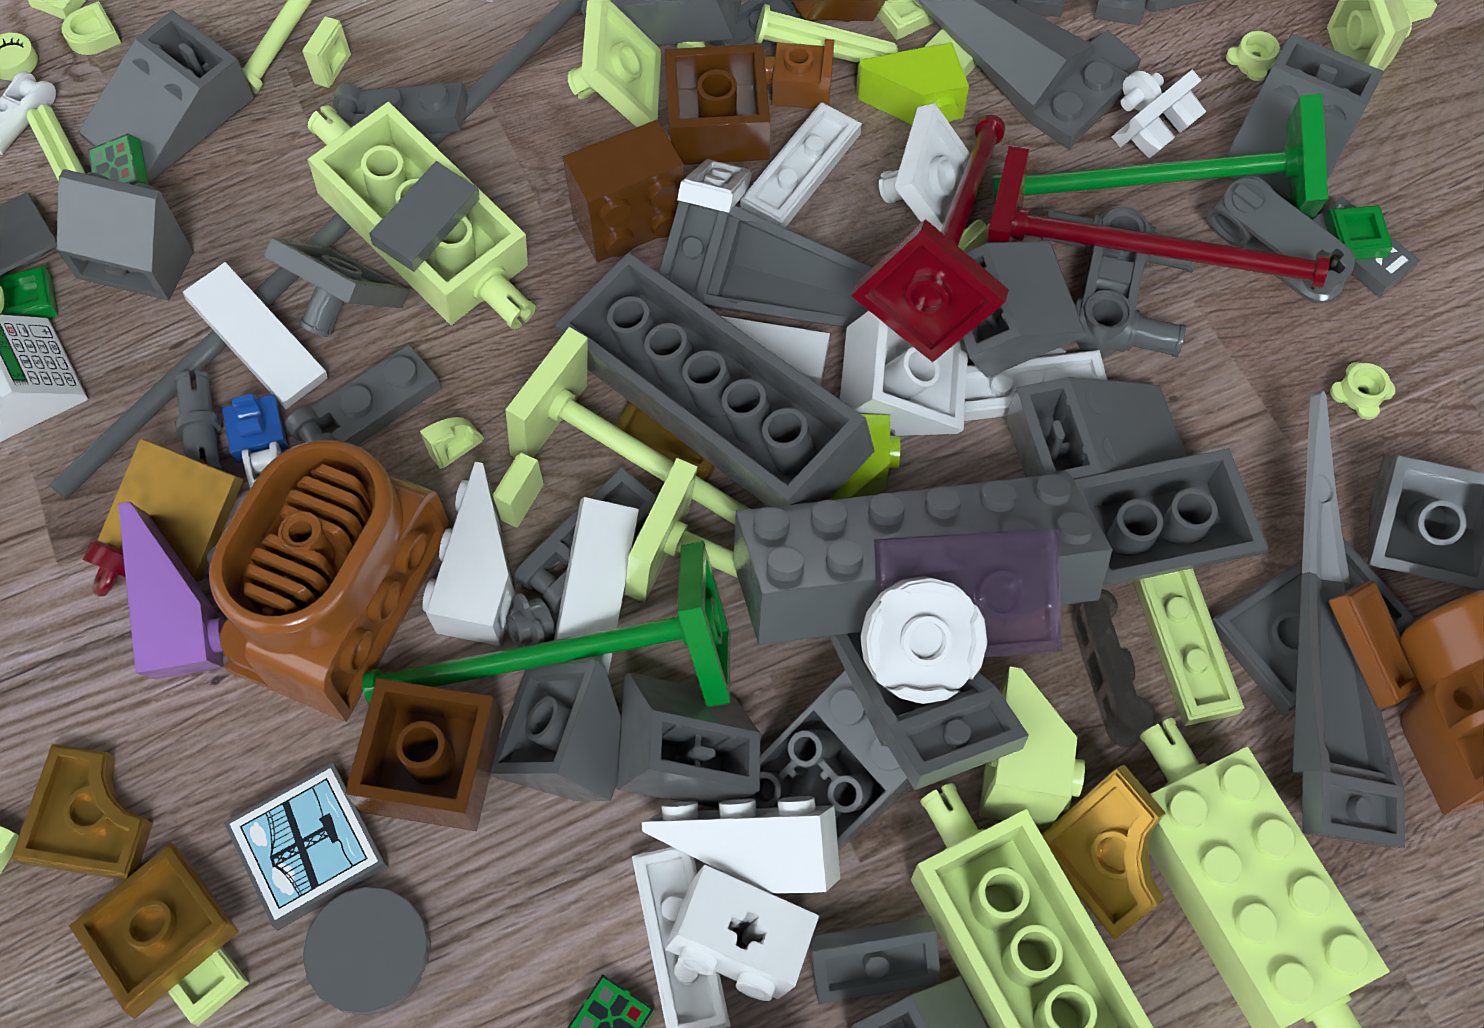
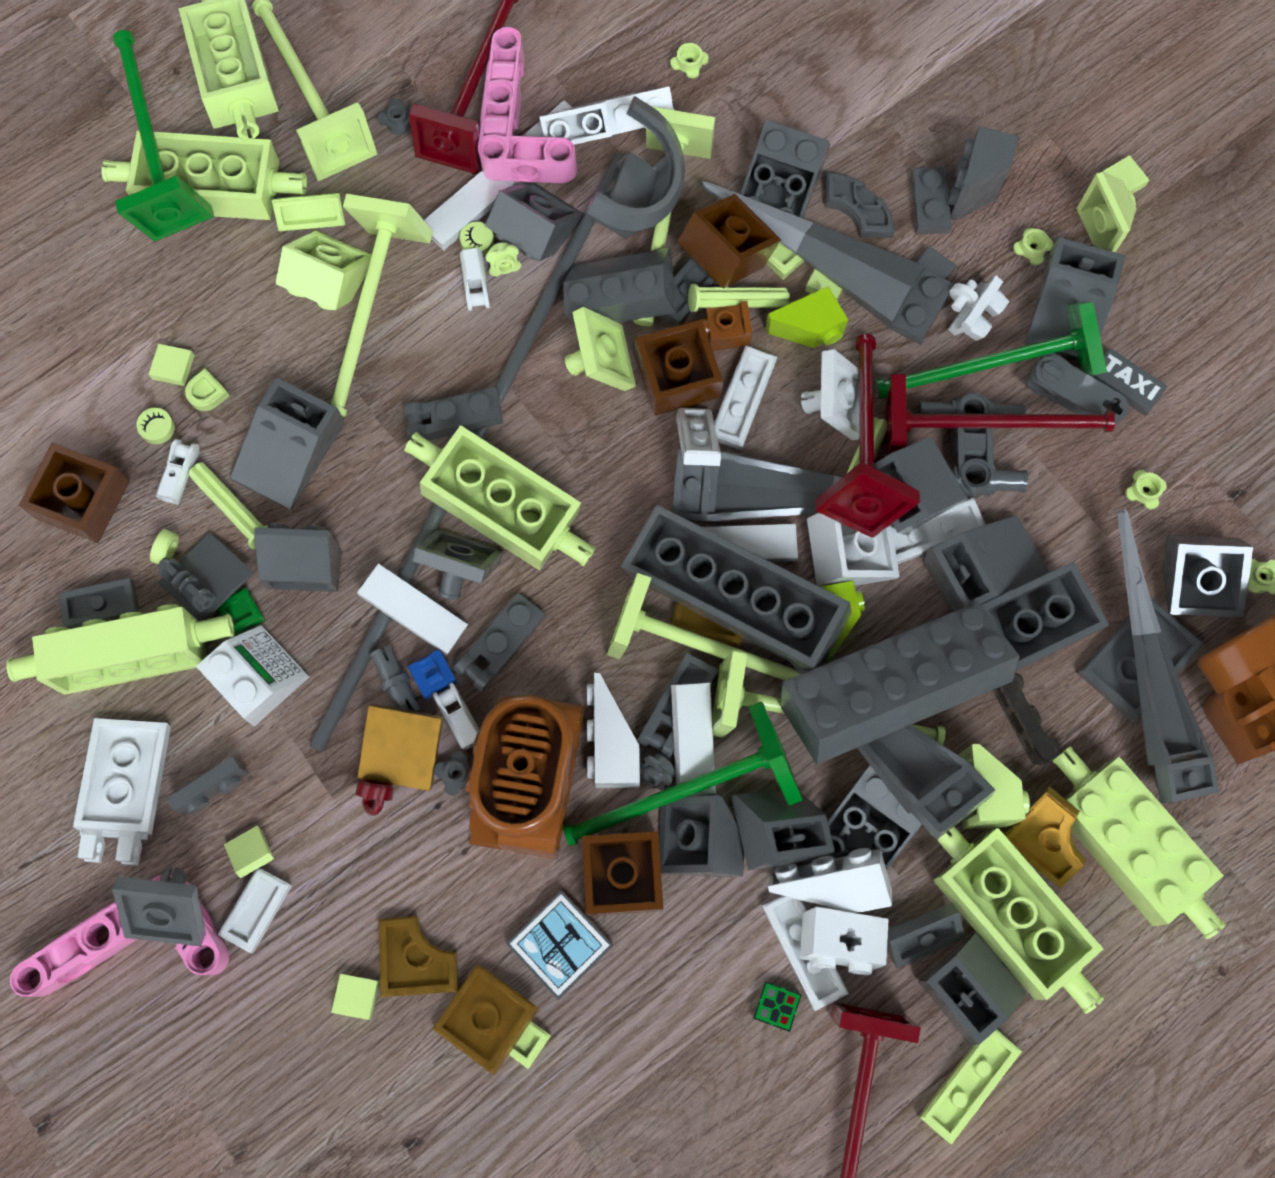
camera: 15 degrees left, 10 degrees up
(119, 160) = (271, 502): green tile -> none
(169, 614) = (427, 816): medium lavender slope -> none
(326, 52) = (388, 378): yellowish green tile -> none
(366, 951) = (618, 1000): dark grey tile -> none
(424, 216) = (513, 508): dark grey tile -> none
(450, 439) = (567, 656): yellowish green tile -> none
(518, 489) = (623, 681): yellowish green tile -> none
(624, 190) = (637, 452): reddish brown brick -> none
(923, 639) = (921, 745): white tile -> none
(1003, 573) = (940, 708): clear purple tile -> none
(1189, 647) = (1070, 695): yellowish green tile -> none
(1361, 231) = (1126, 375): green tile -> none
(1375, 643) = (1182, 668): dark orange tile -> none

